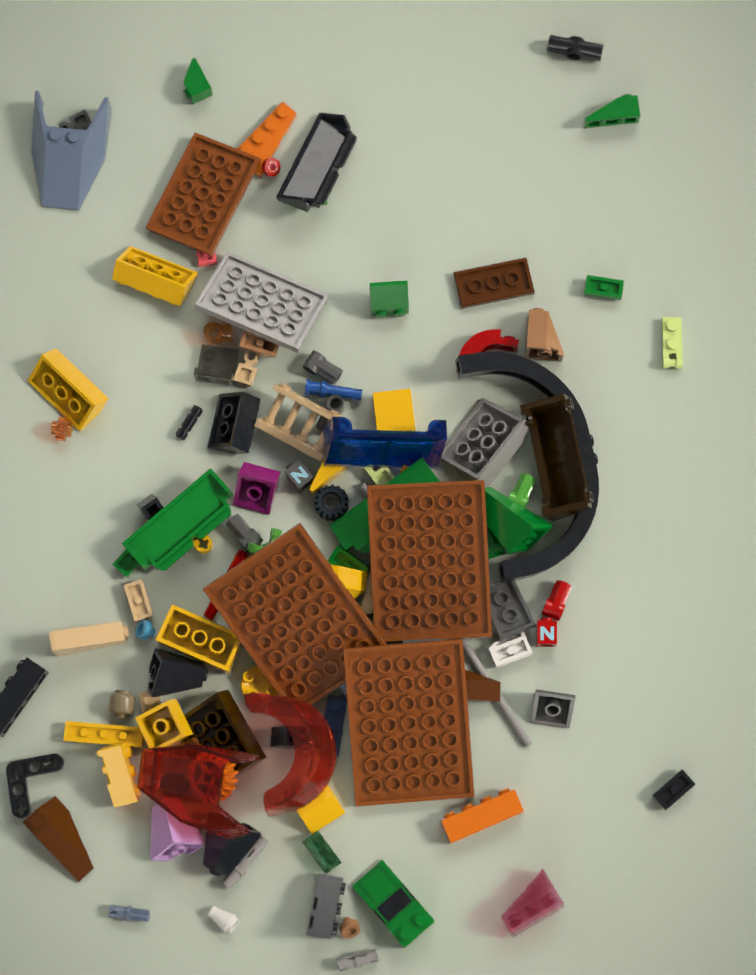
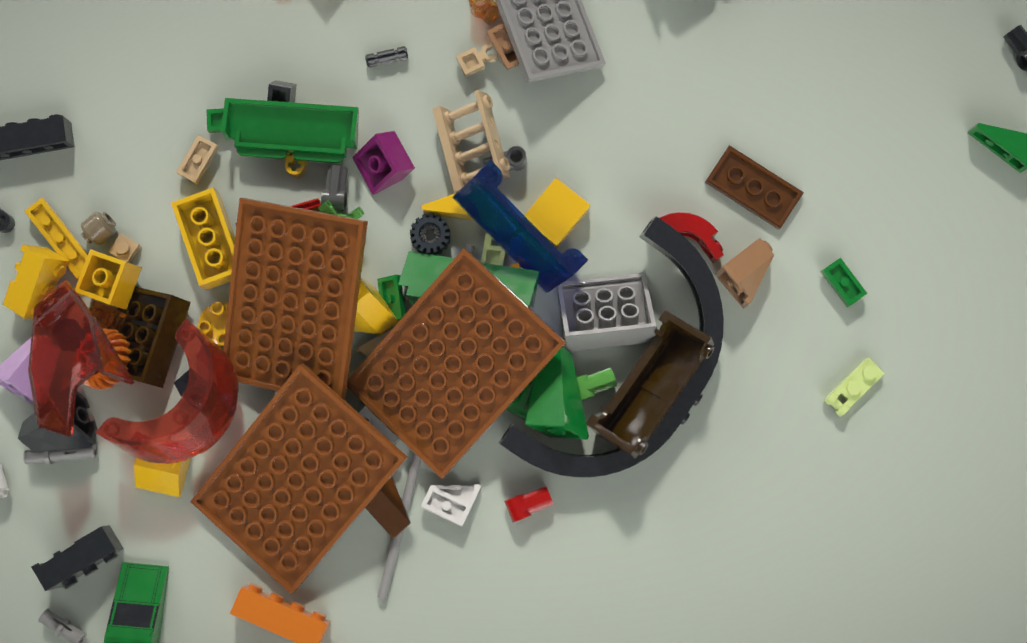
camera: 45 degrees right, 5 degrees up
(88, 638) = (124, 147): tan slope -> none
(144, 630) = (177, 187): dark azure tile -> none
(174, 673) = (160, 246): black slope -> none
(216, 365) = (455, 31): clear smoke bracket -> none
(234, 422) = (421, 92): black slope -> none
(298, 475) = (426, 185): dark grey brick -> none
(318, 365) = (537, 113): dark grey piece -> none
(321, 852) = (125, 510): clear green plate -> none
(324, 389) = (521, 137): blue pin -> none
(335, 716) = (246, 415): dark blue plate -> none
(349, 928) = (82, 594): medium nougat tile -> none
(389, 298) = (651, 113): green slope -> none
(508, 610) = (480, 470): dark grey tile -> none
(546, 633) = (491, 521): red brick -> none
(552, 708) = (430, 589): dark grey slope -> none

